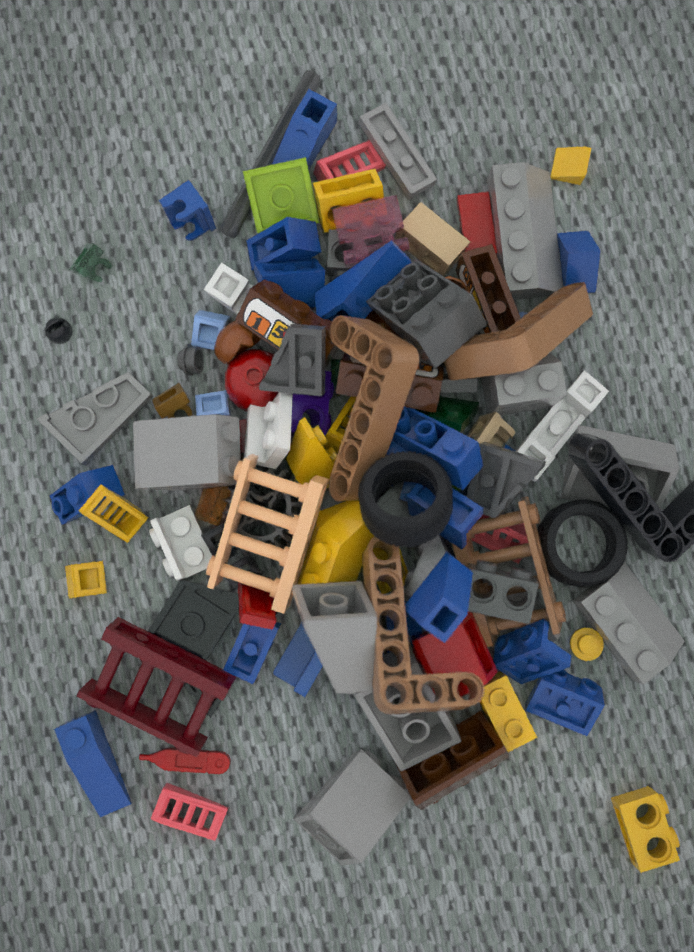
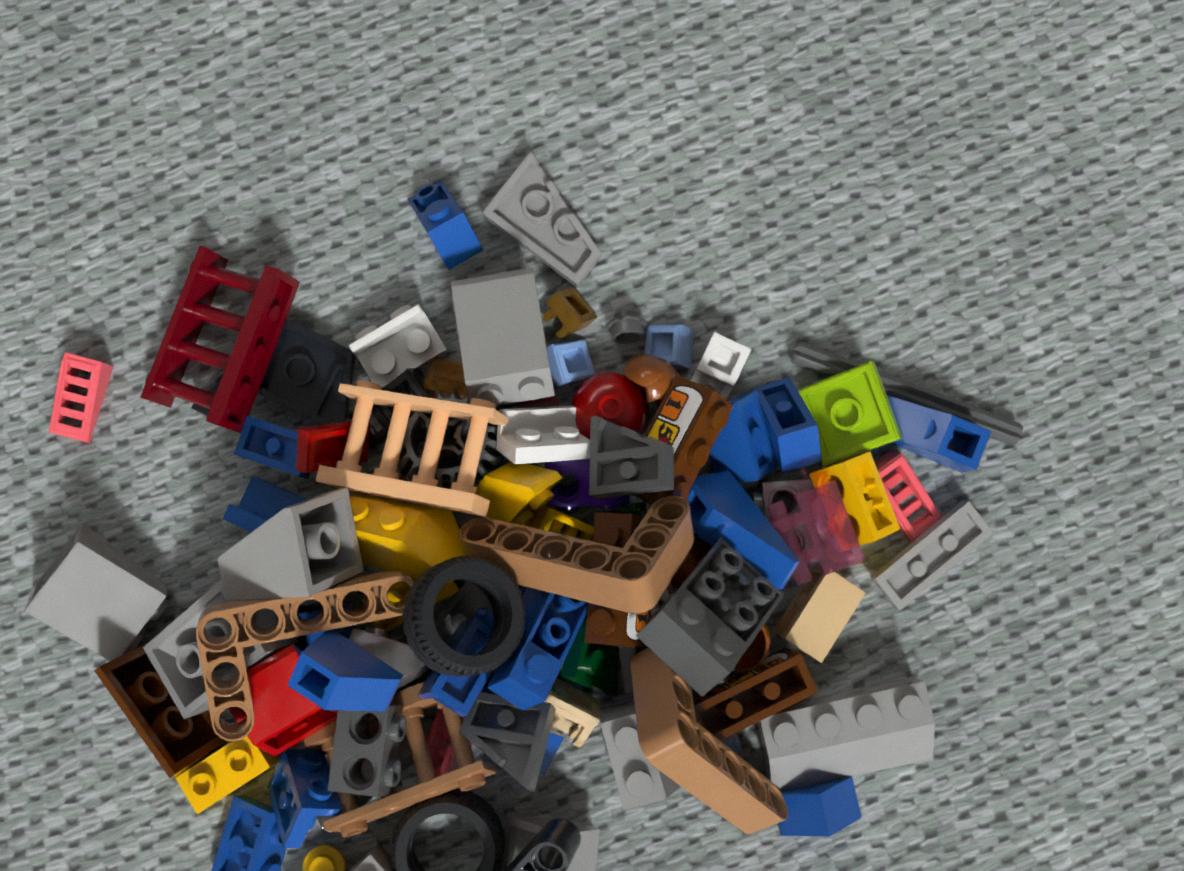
camera: 85 degrees right, 0 degrees up
(59, 334) = (640, 167): black hinge -> none
(85, 579) = (344, 237): yellow slope -> none
(88, 260) = (733, 184): clear green tile -> none
(93, 763) = (128, 275): blue slope -> none
(127, 526) = (409, 266): yellow slope -> none
(173, 760) = (140, 412): red piece -> none
(186, 206) = (815, 295): blue hinge -> none
(476, 220) = (850, 669): red tile -> none
(563, 420) = (601, 805): white slope -> none
(570, 164) = (946, 785): yellow slope -> none

